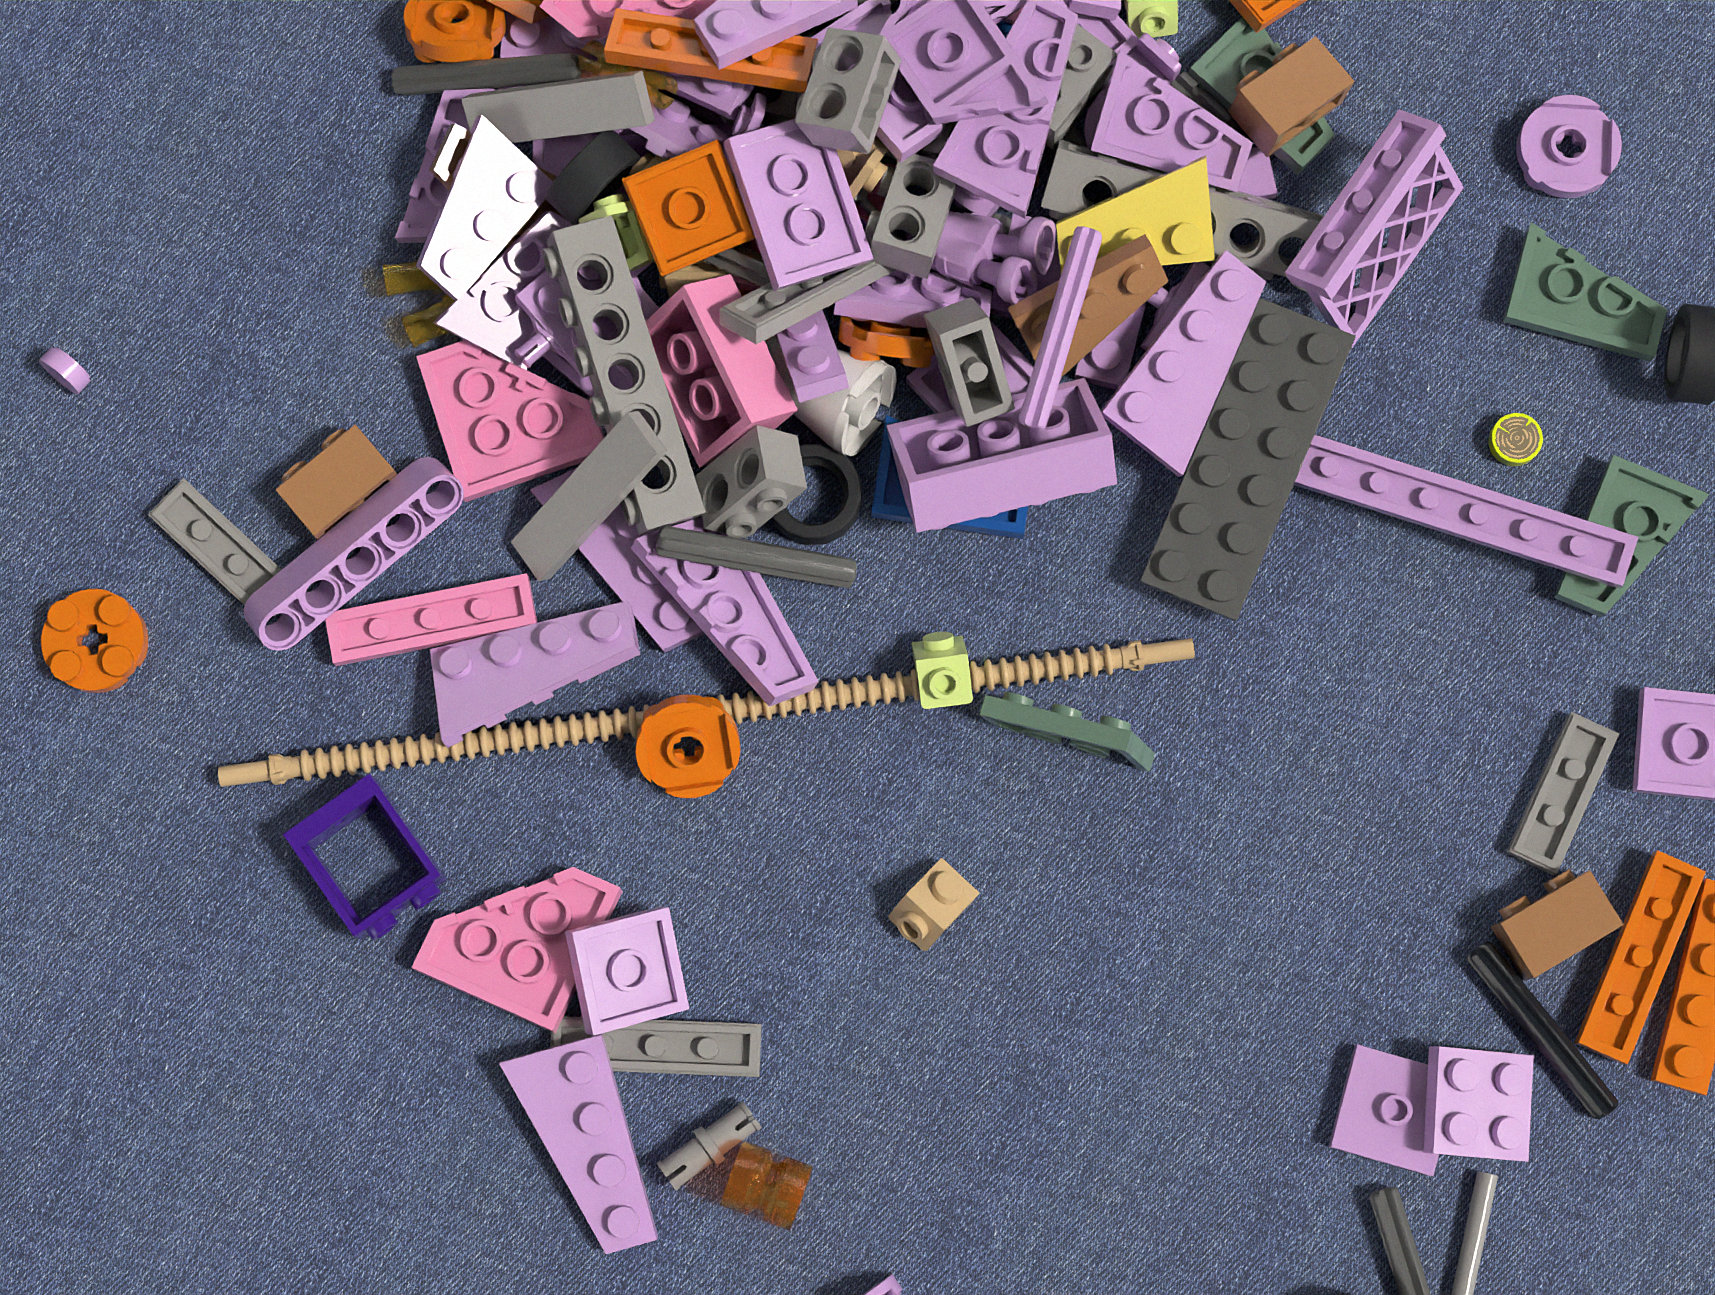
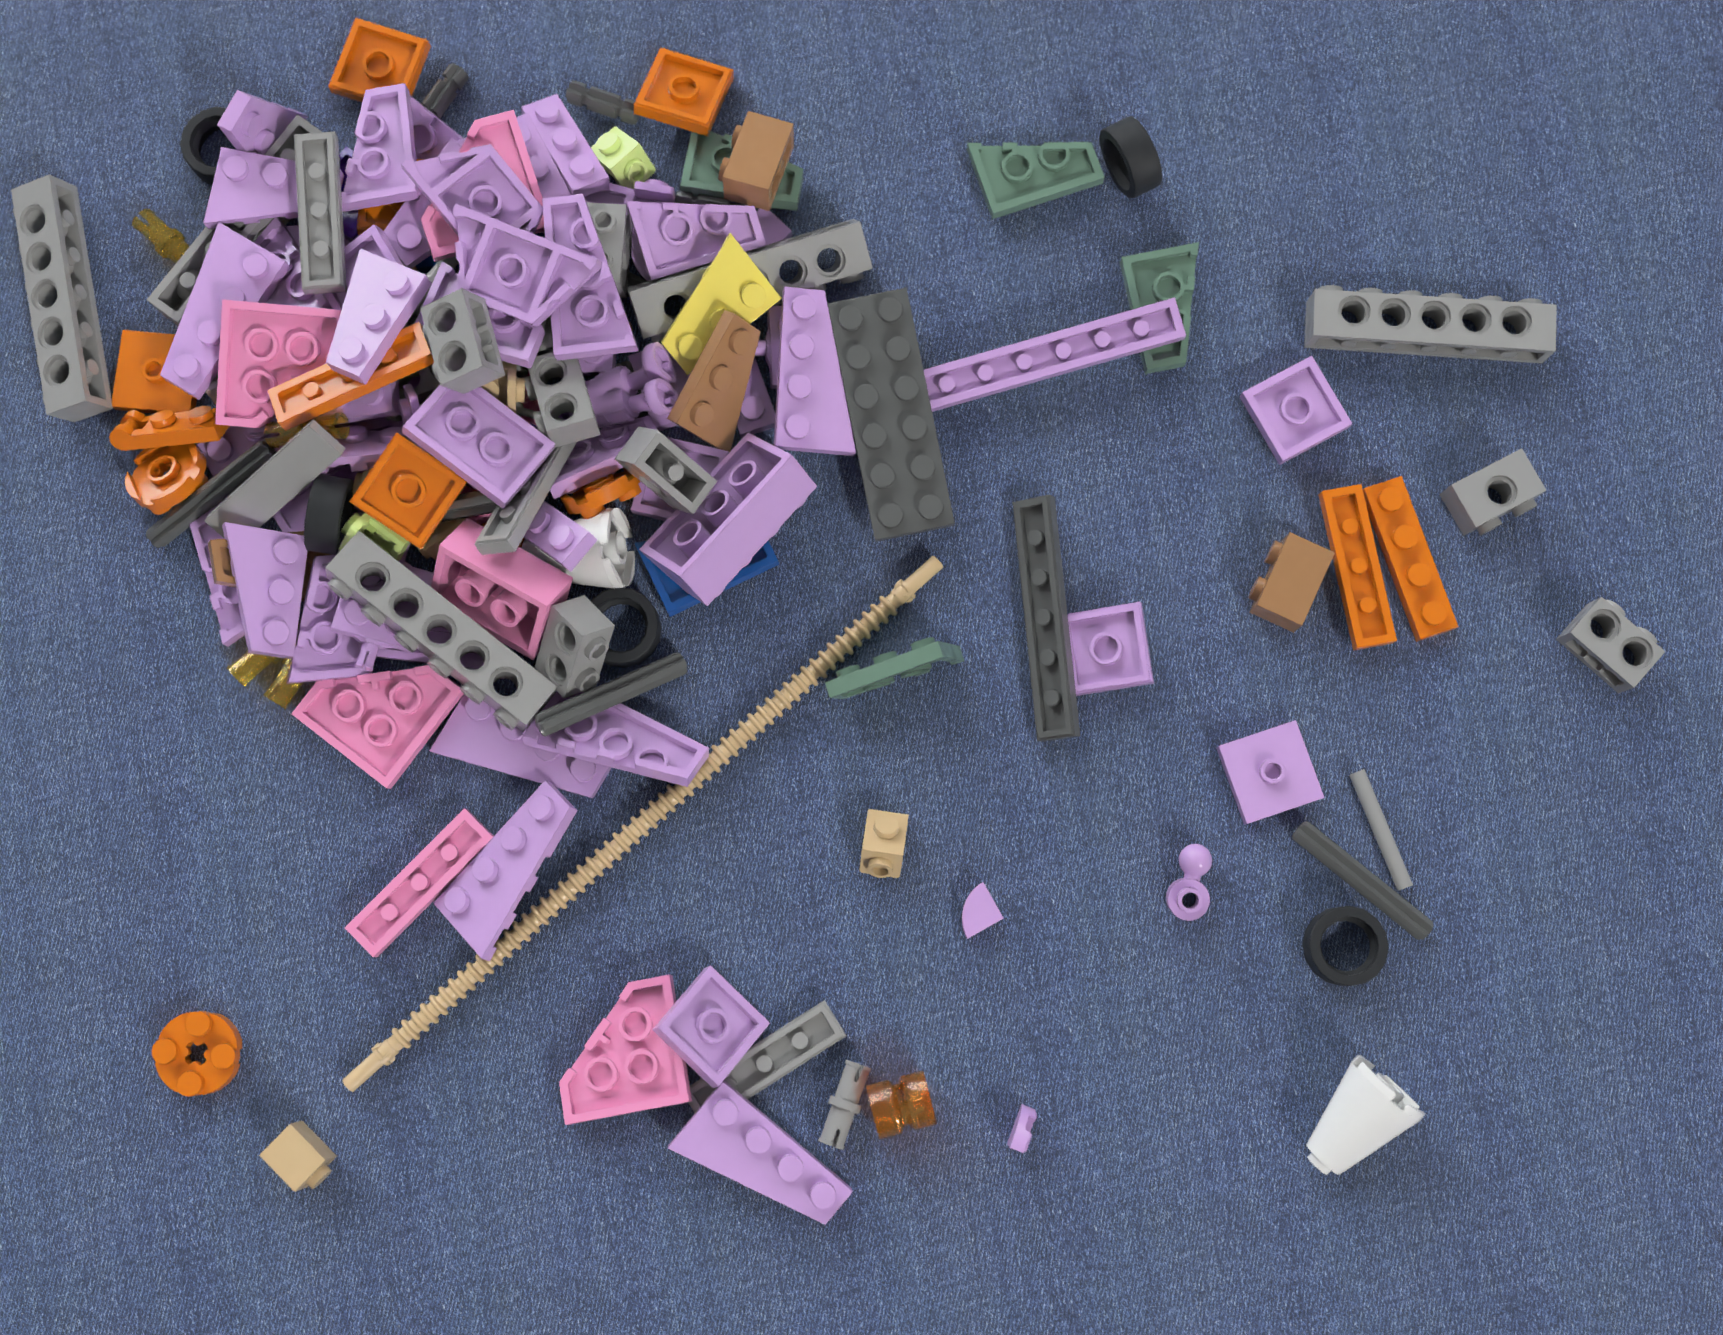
camera: 35 degrees left, 0 degrees up
(65, 370) = (53, 883): lavender tile -> none
(125, 815) = (299, 1157): none -> tan brick
(213, 541) = (245, 931): light grey tile -> none
(327, 556) = (320, 886): lavender beam -> none
(335, 480) = (294, 834): medium nougat brick -> none
(337, 815) = (445, 1056): dark purple window -> none
(589, 495) = (471, 727): light grey tile -> none
(681, 717) = (647, 826): orange plate -> none
(942, 670) = (785, 685): yellowish green bracket -> none
(984, 1044) = (979, 911): none -> lavender tile
(1060, 327) = (711, 407): lavender axle -> none
(1246, 1149) = (1195, 862): none -> lavender plate
(1266, 786) = (1046, 619): none -> dark grey tile
(1308, 861) = (1109, 649): none -> lavender plate
(1373, 200) = (857, 193): lavender fence -> none
(1478, 1103) = (1321, 731): lavender plate -> none
(1515, 439) = (1052, 289): tile -> none
(1543, 1030) = (1328, 655): black axle -> none
(1562, 793) = (1236, 495): light grey tile -> none
(1590, 128) = (953, 101): lavender plate -> none

